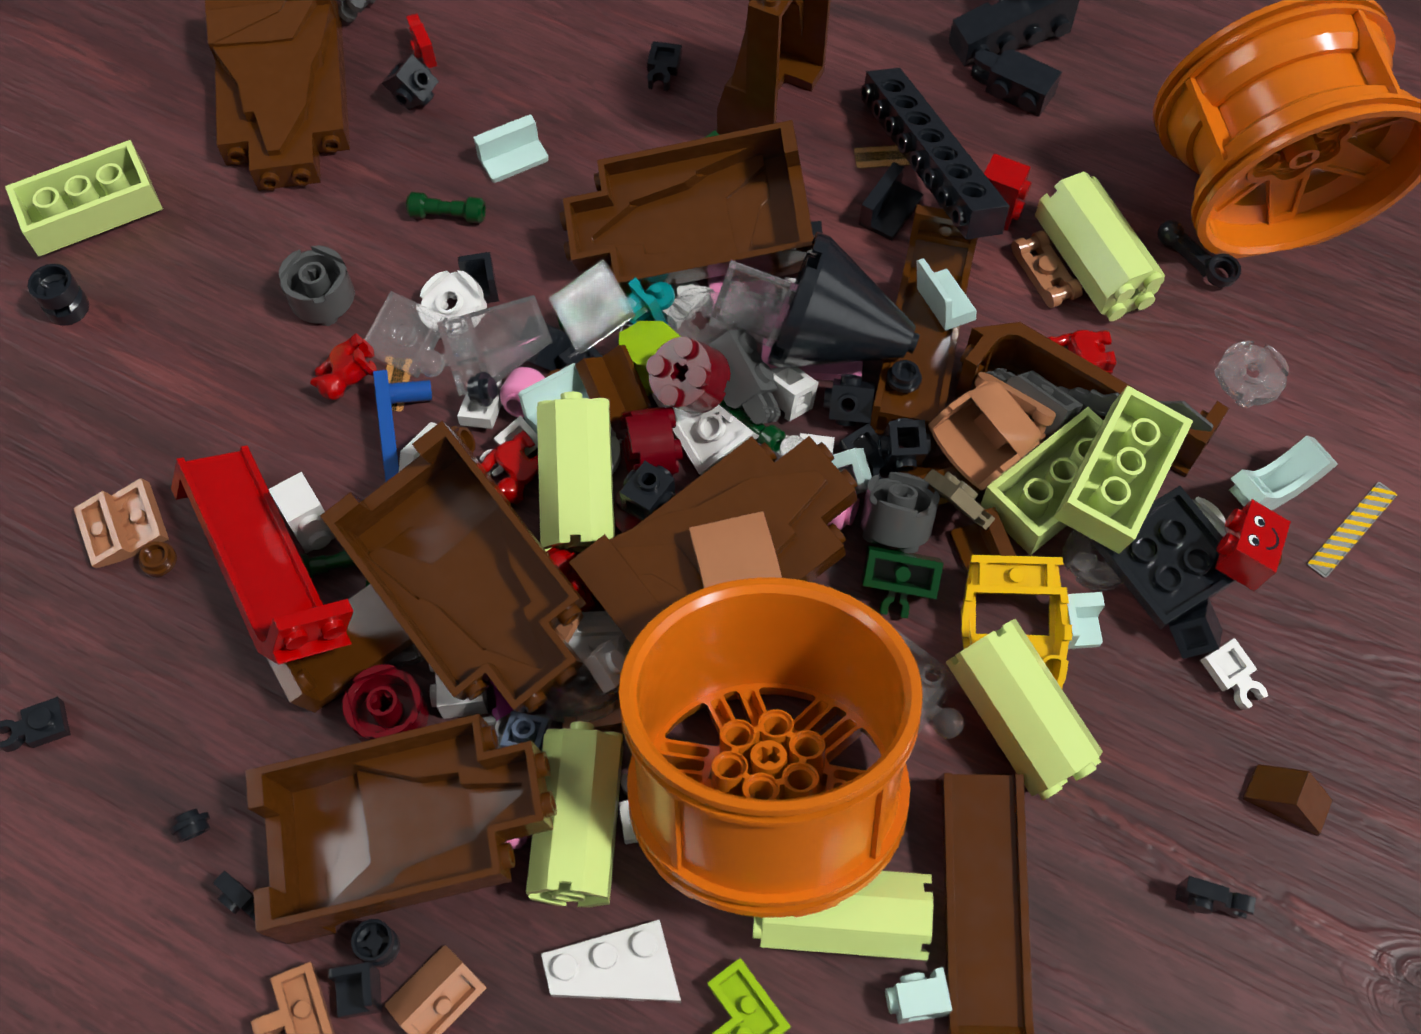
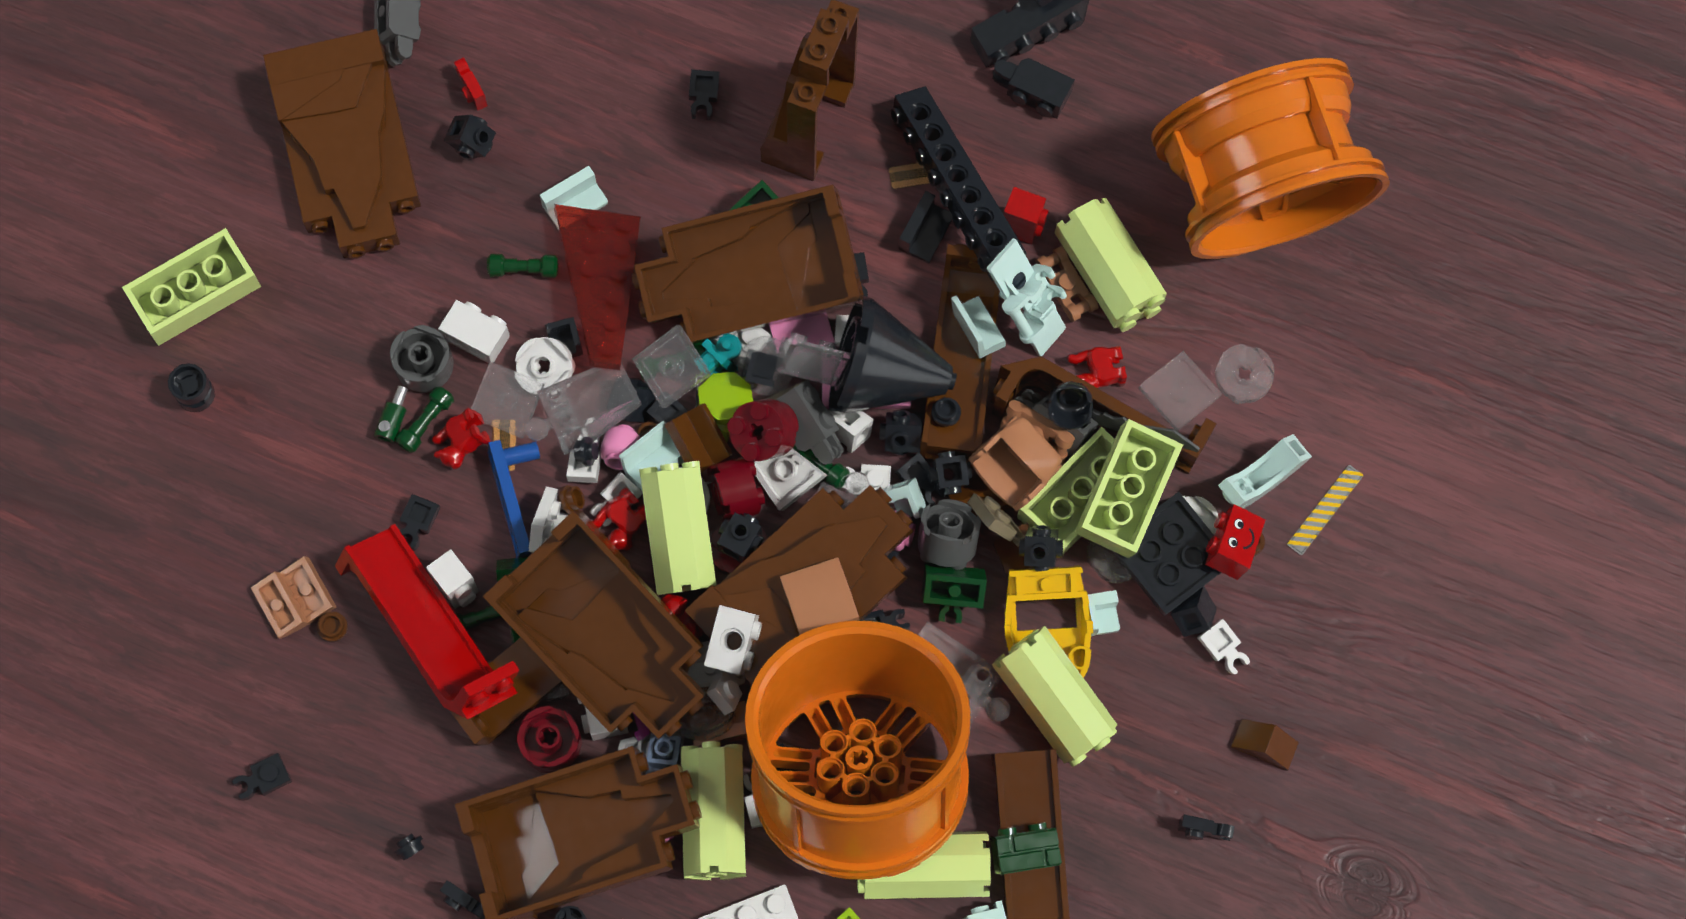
camera: 10 degrees left, 10 degrees up
(273, 344) = (391, 417): none -> dark green piece
(280, 448) = (418, 517): none -> black plate
(290, 366) = (410, 438): none -> dark green piece
(381, 264) = (474, 331): none -> white brick
(526, 220) = (600, 267): none -> clear red wing
(618, 576) = (727, 622): none -> white brick
(692, 316) = (760, 367): none -> black panel
(979, 901) = (1025, 849): none -> dark green brick
(1007, 255) = (1028, 289): none -> light aqua piece
(1028, 529) = (1042, 537): none -> black brick
(1054, 373) = (1070, 405): none -> black hair
(1172, 234) = (1176, 240): black piece -> none
(1178, 377) = (1180, 391): none -> clear plate

